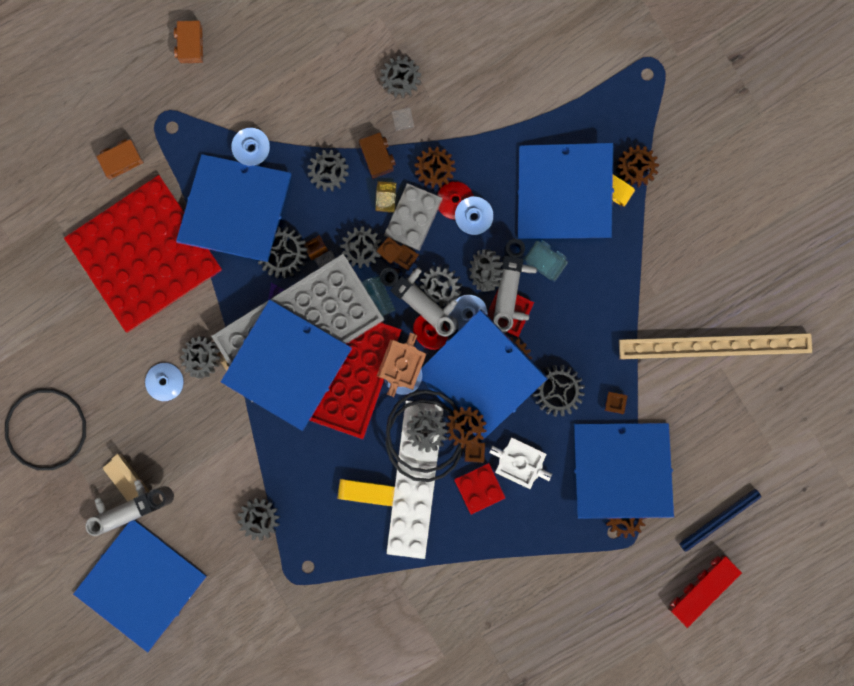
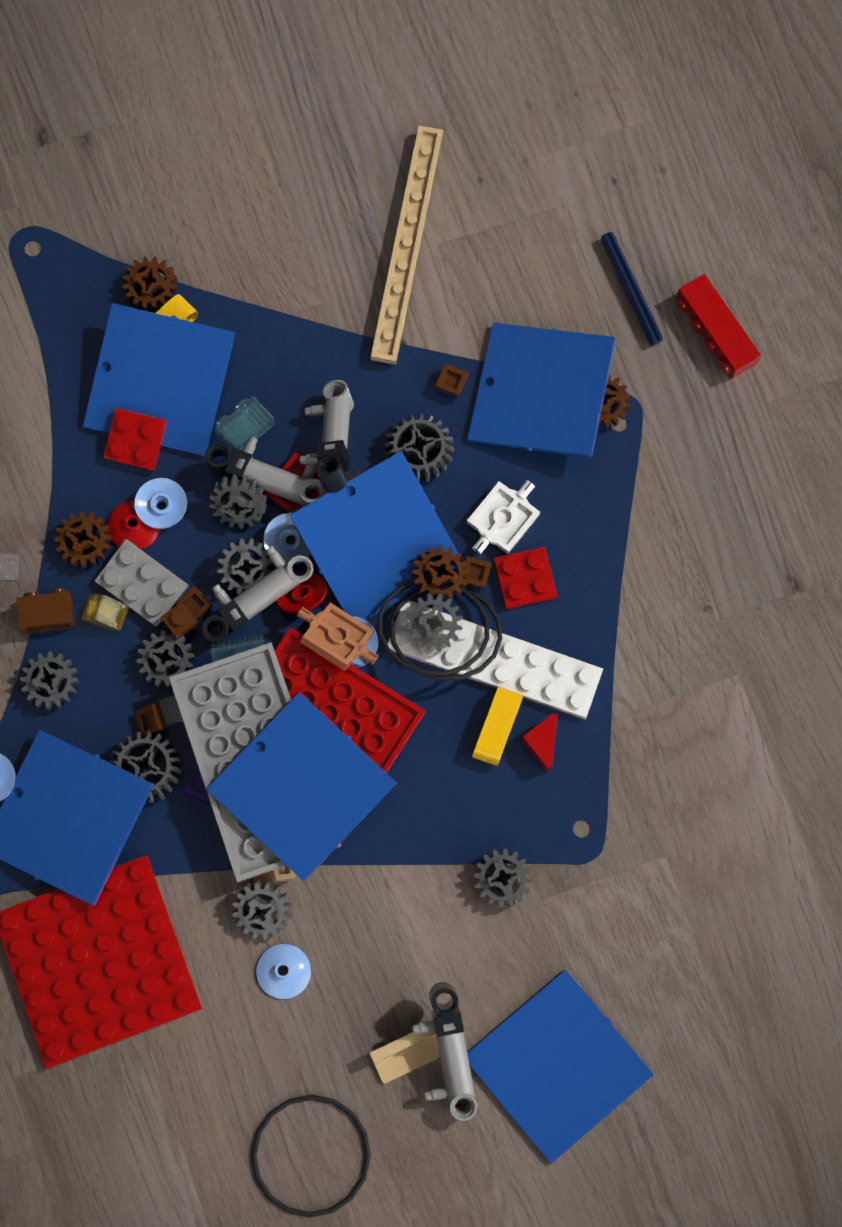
camera: 80 degrees left, 10 degrees down
(362, 526) = (541, 741): none -> red slope
(517, 185) = (135, 439): none -> red plate
(534, 329) = (332, 454): none -> piece

